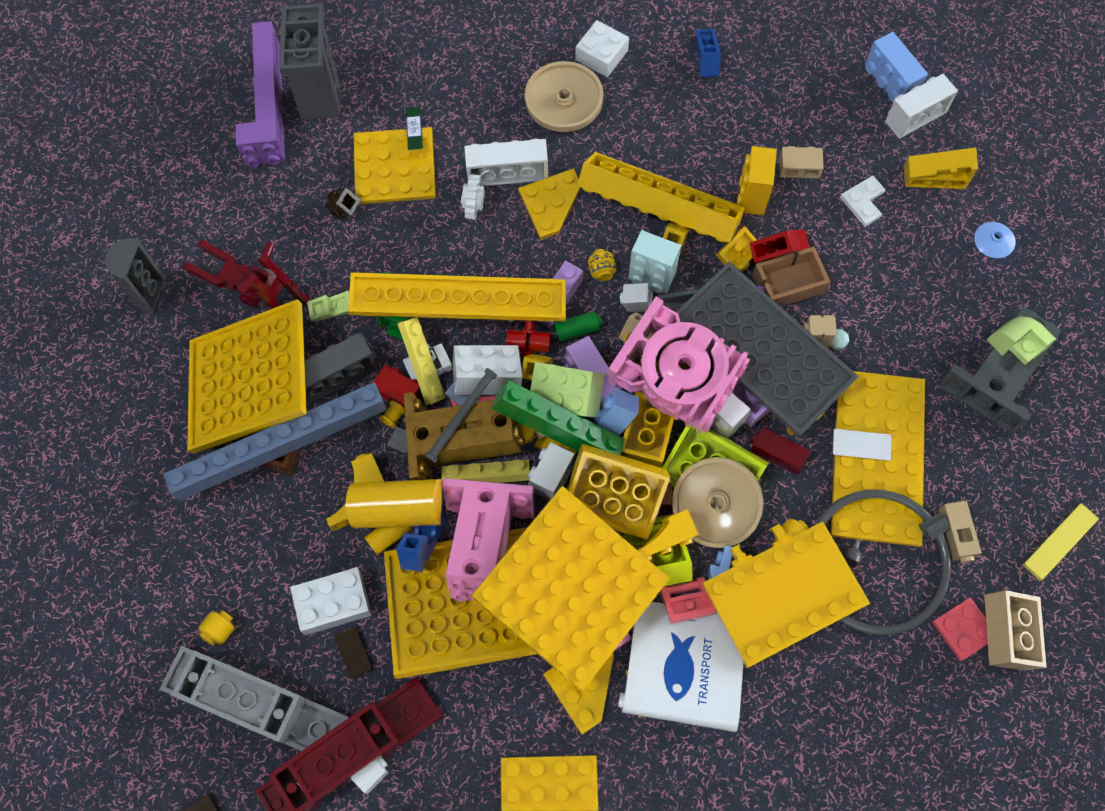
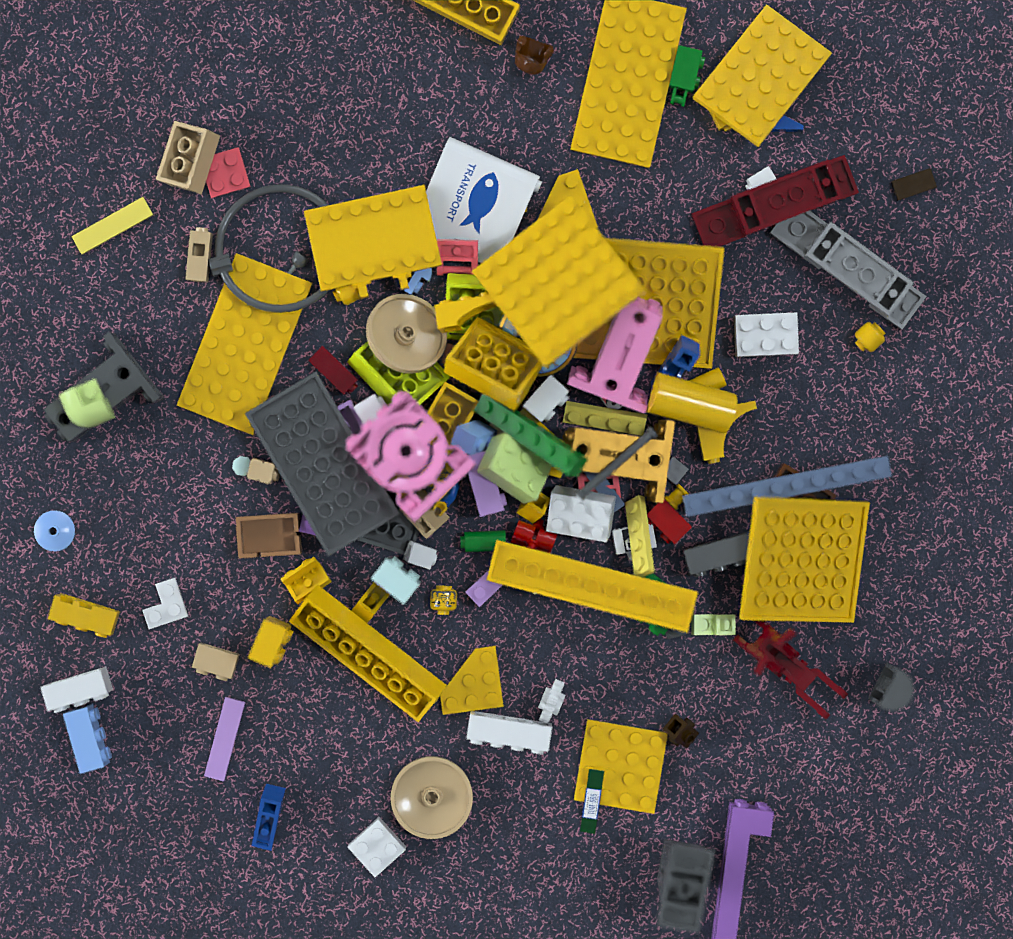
camera: 170 degrees left, 20 degrees up
(353, 653) = (756, 287): dark brown tile -> none
(768, 105) = (224, 739): none -> lavender tile
(779, 245) = (268, 569): red slope -> none
(862, 444) = (257, 356): white sticker -> none

